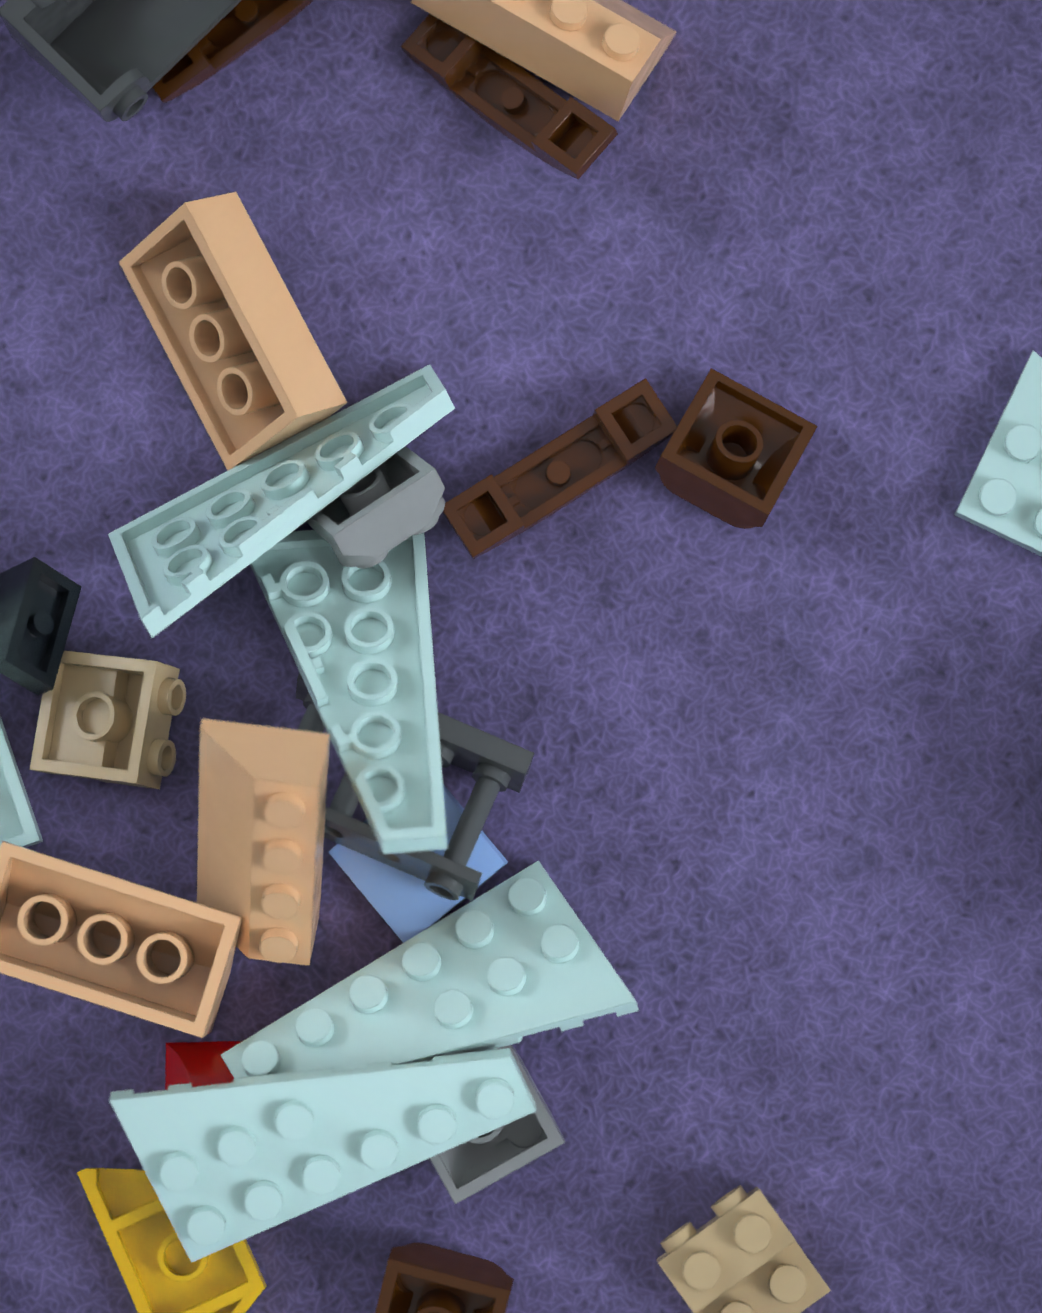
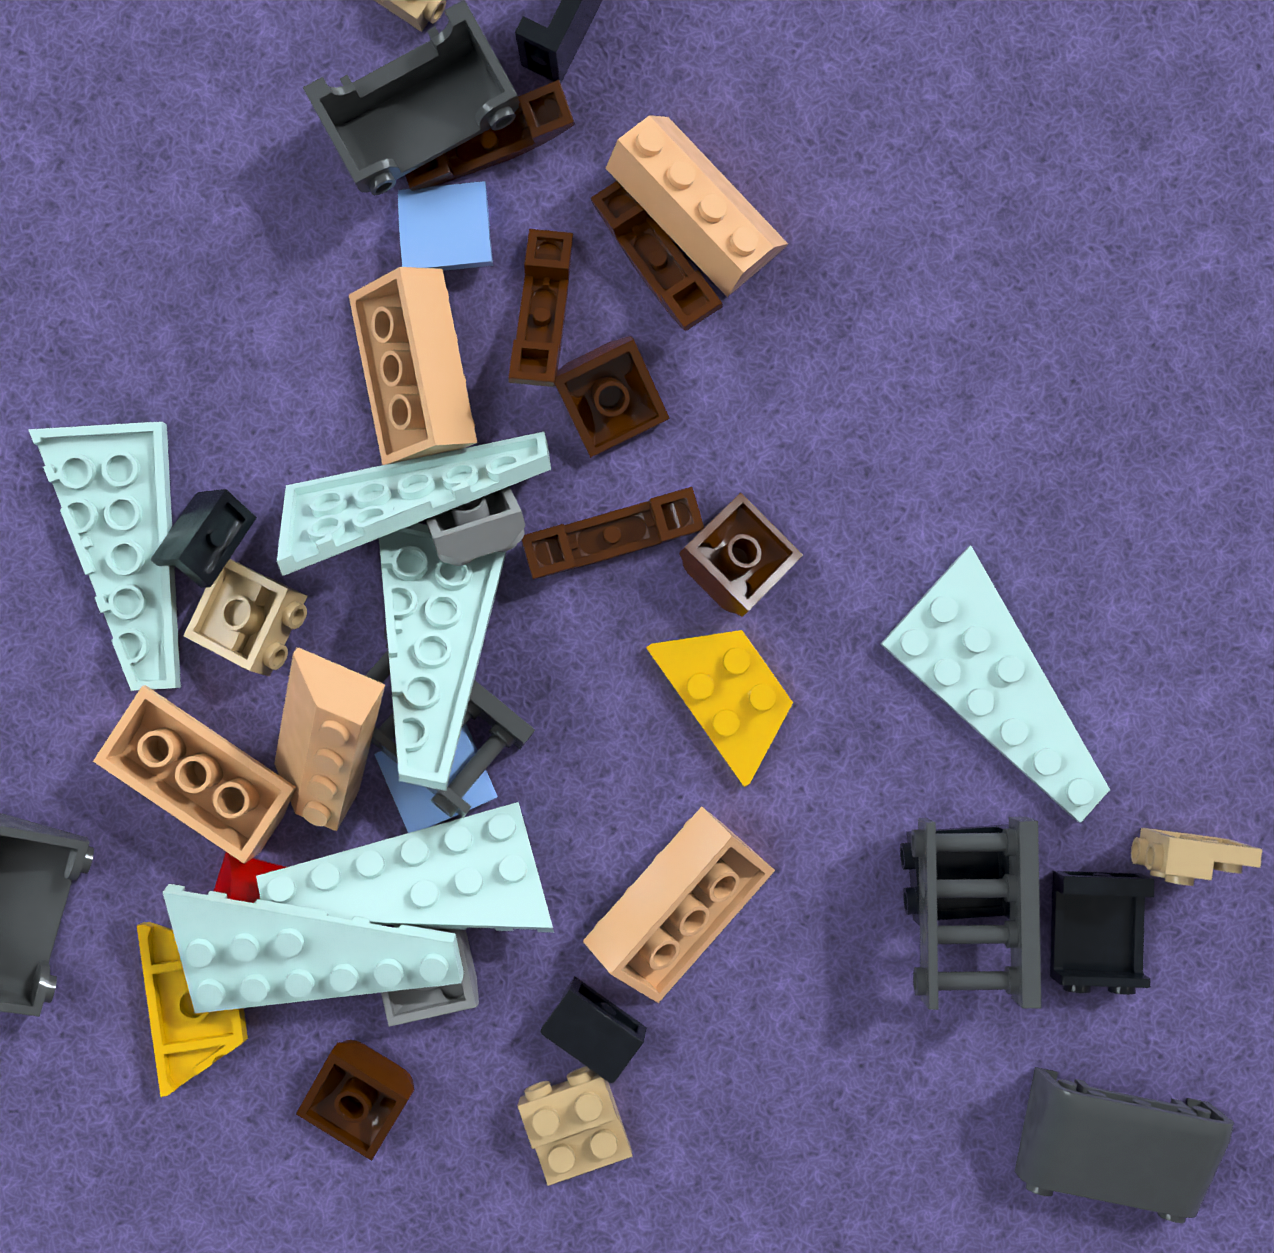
camera: 15 degrees right, 5 degrees up
(223, 137) = (445, 227): none -> light blue slope
(381, 204) = (542, 308): none -> reddish brown slope
(502, 291) = (610, 395): none -> reddish brown slope
(729, 1134) = (594, 1030): none -> black panel
(773, 638) = (728, 694): none -> yellow wing
(793, 933) = (678, 906): none -> light nougat slope

